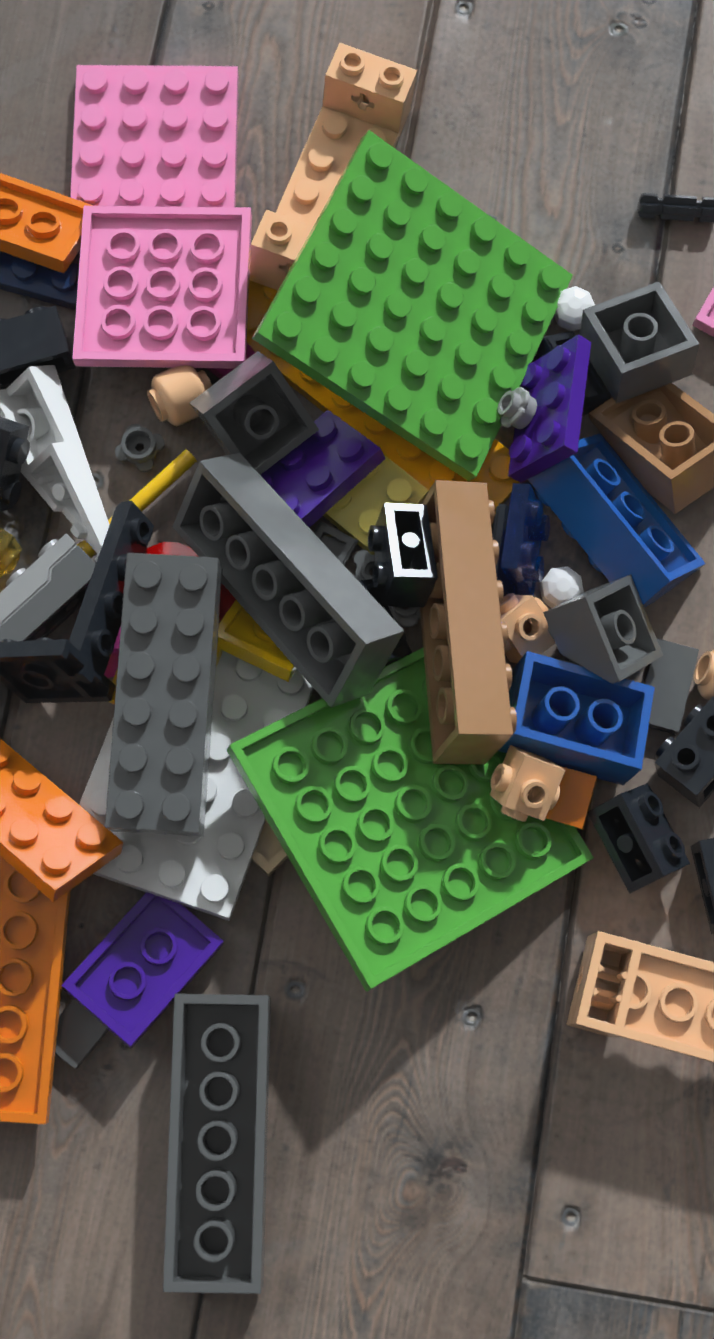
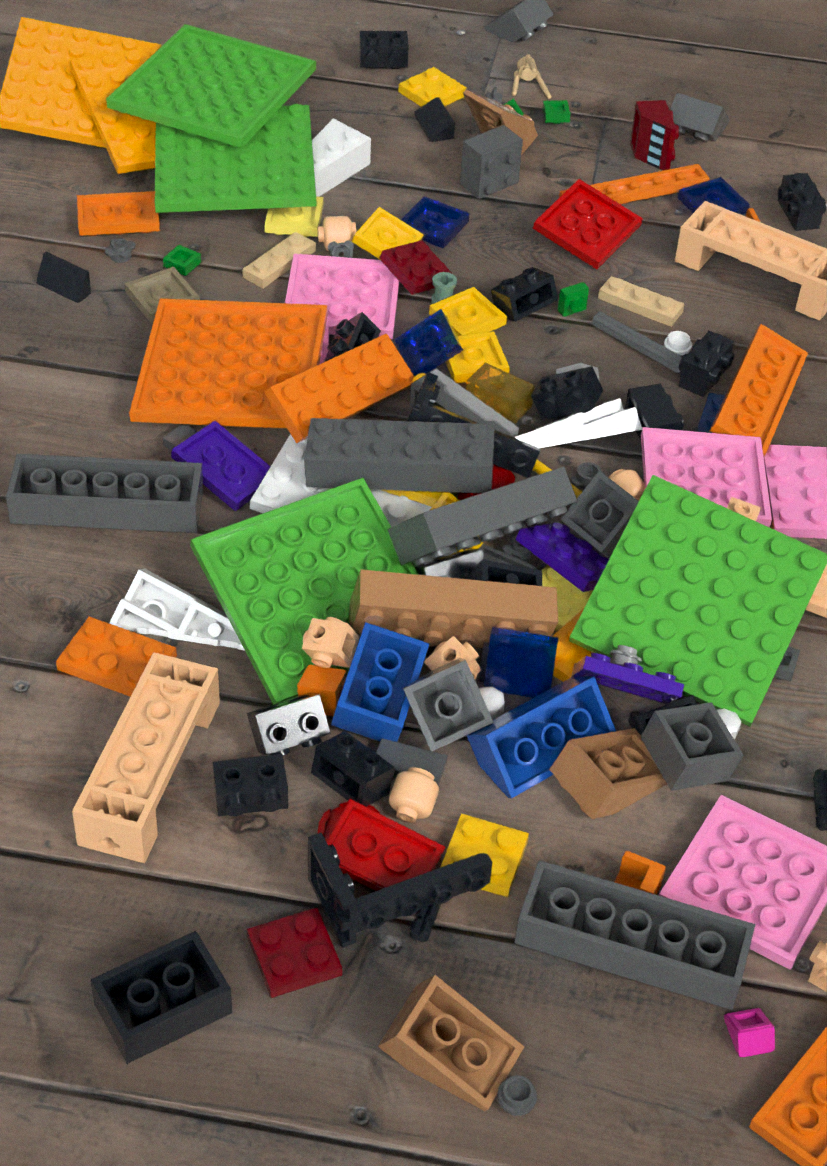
camera: 90 degrees right, 30 degrees down
(428, 1026) = (168, 611): none -> white wedge
(519, 1087) = (110, 655): none -> orange plate

